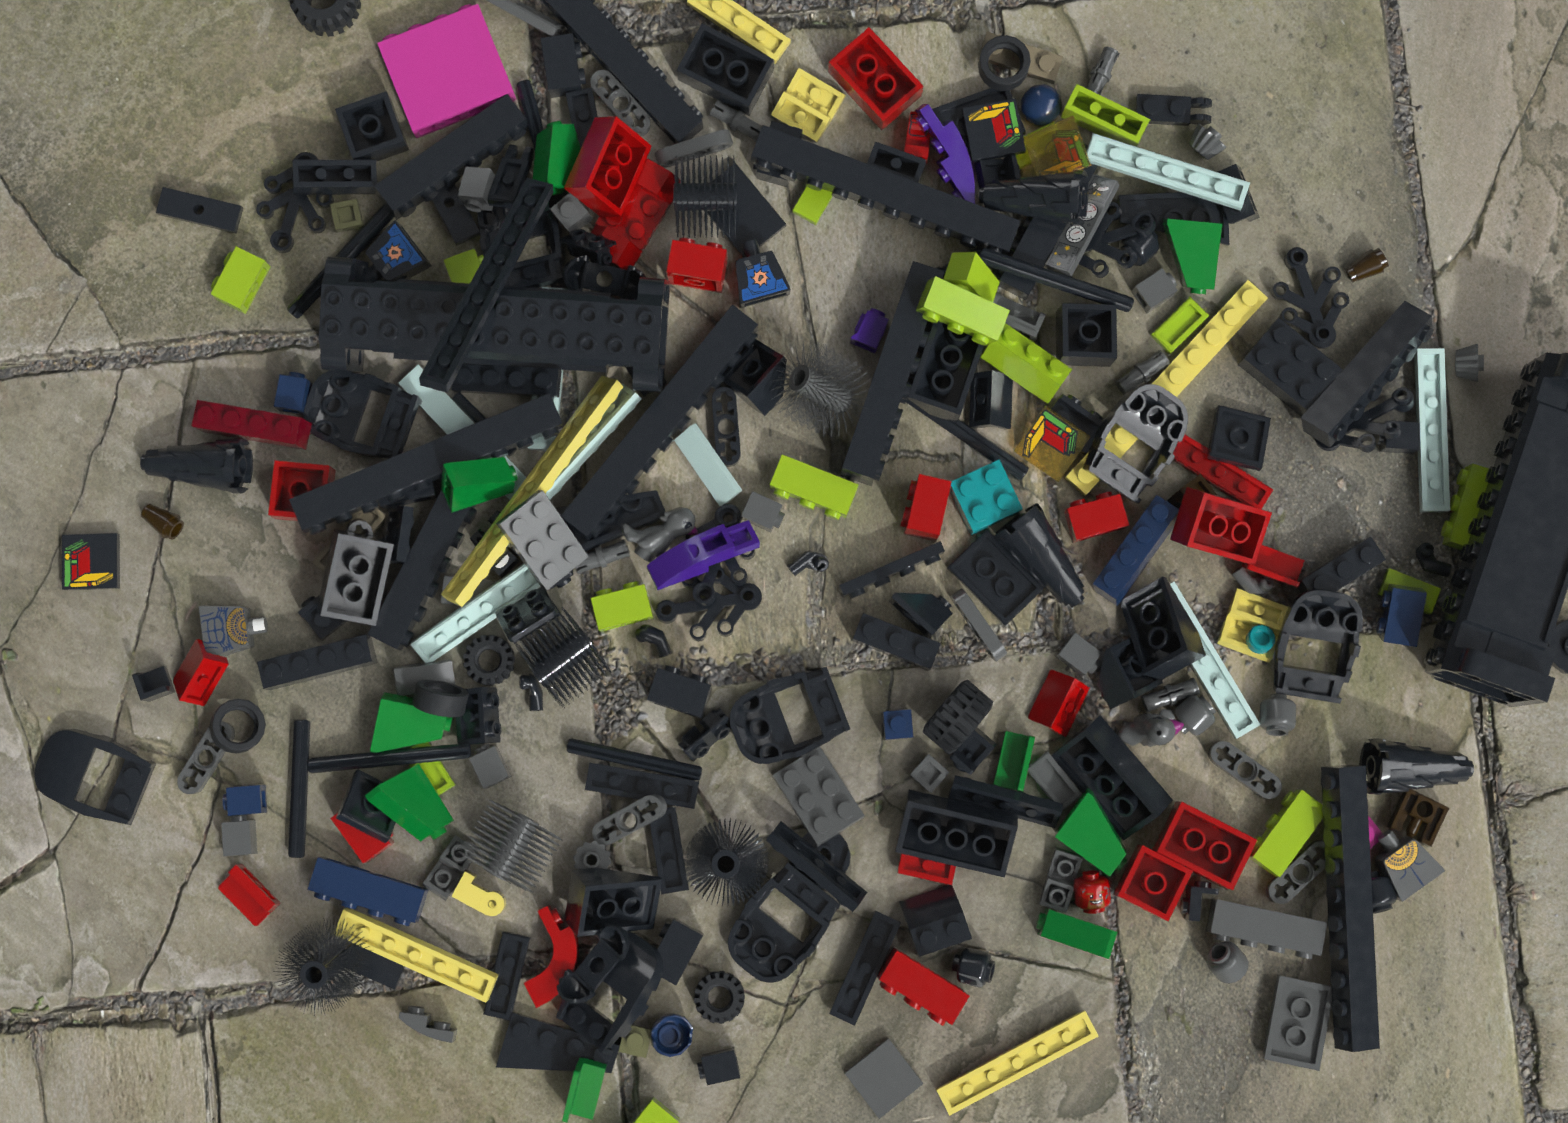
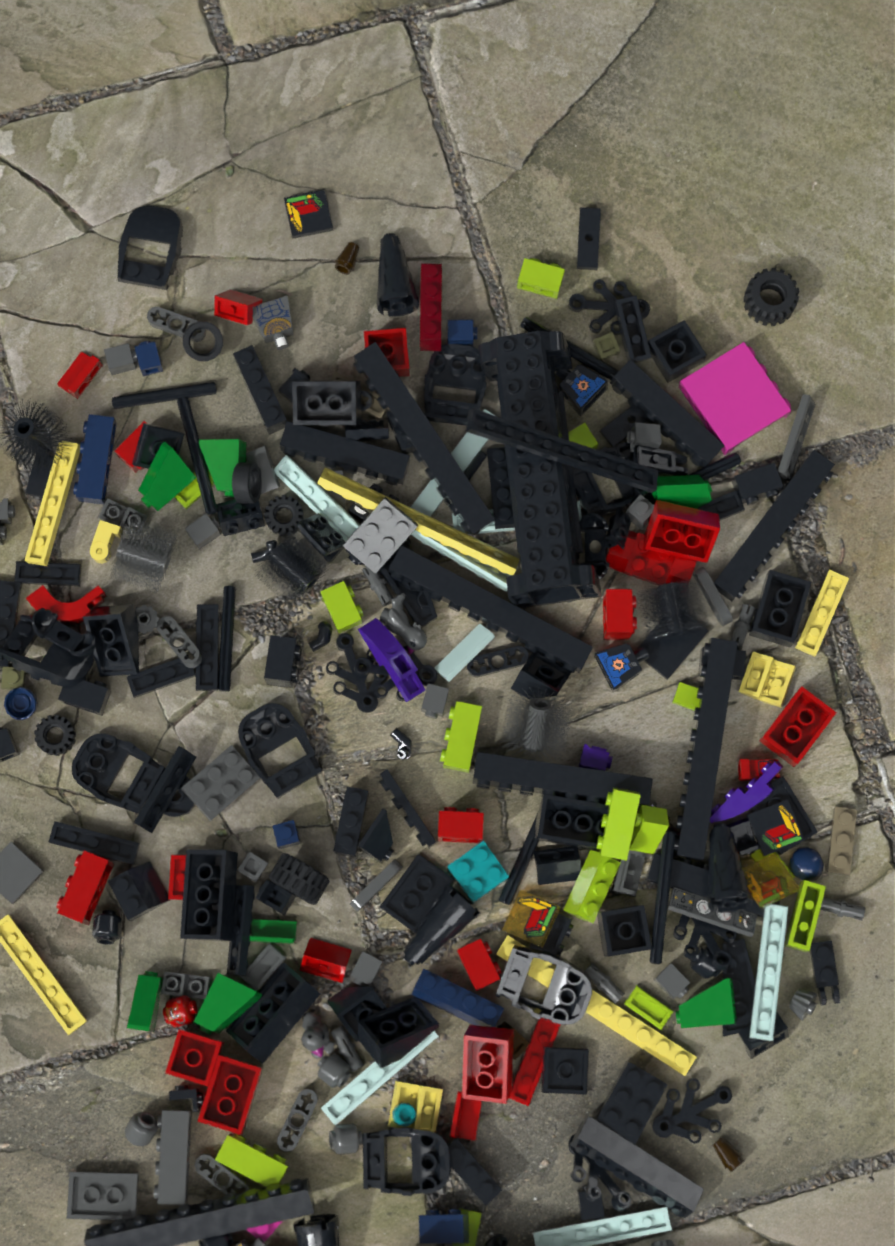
camera: 80 degrees right, 5 degrees down
(153, 684) = (224, 275): black panel -> none
(476, 481) = (416, 479): green slope -> none
(613, 83) = (742, 518): dark grey beam -> none
(697, 743) = (247, 683): black hinge -> none
(739, 874) = (166, 723): black piece -> none
(897, 162) = (730, 755): black brick -> none
(1010, 43) = (847, 819): black tyre -> none
(1253, 585) = (447, 1101): dark grey arm -> none

